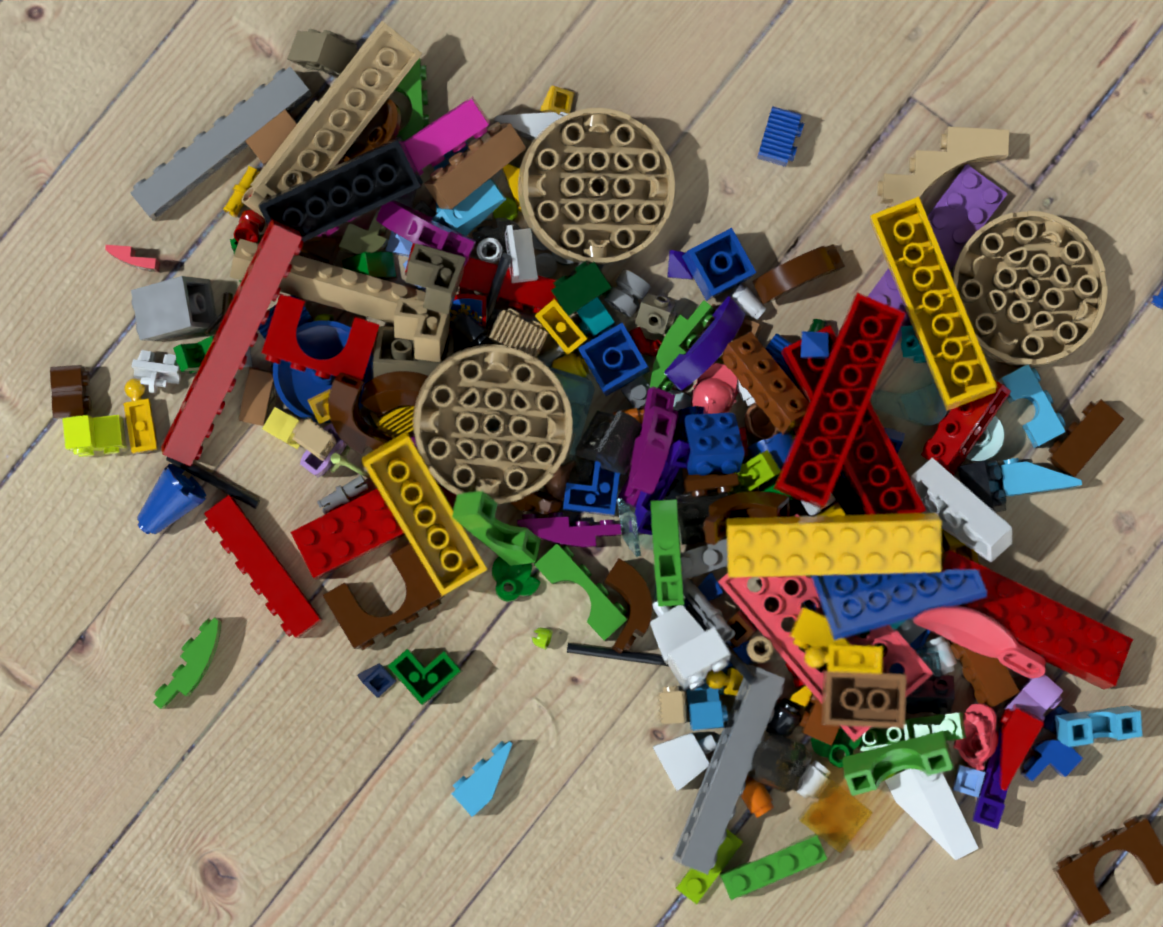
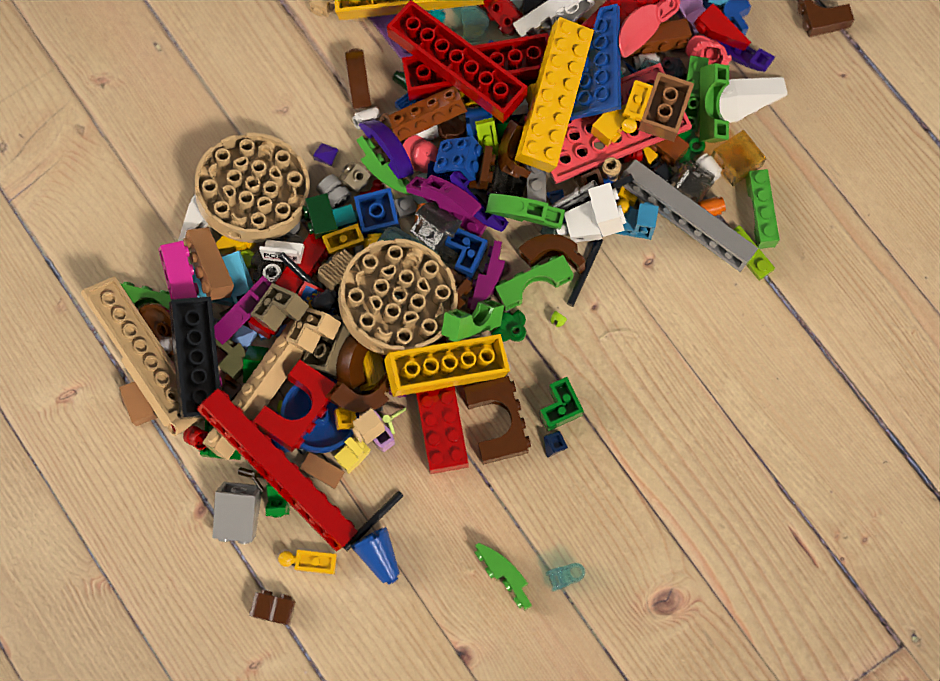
camera: 75 degrees left, 10 degrees down
(90, 434) = (310, 598): neon yellow brick -> none
(127, 255) = (185, 537): coral slope -> none
(154, 373) = (279, 539): white hips -> none
(210, 739) = (564, 576): none -> clear light blue piece
(219, 144) = (127, 444): light grey brick -> none
(235, 203) = (168, 439): yellow pin -> none
(262, 566) = (448, 501): red brick -> none
(322, 51) = (87, 348): dark tan brick -> none
(343, 494) = (413, 428): light grey pin -> none
(481, 786) = (653, 391): medium azure slope -> none
(557, 100) = (181, 202): yellow slope -> none
(629, 527) = (499, 232): clear light blue piece -> none
(672, 705) = (632, 241): tan brick -> none
(684, 757) = (671, 247): white torso -> none
(719, 264) = (334, 125): blue brick -> none
(779, 136) = (260, 64): blue brick -> none
(814, 345) = (413, 69): blue slope -> none
(968, 781) = (737, 68): light blue plate -> none

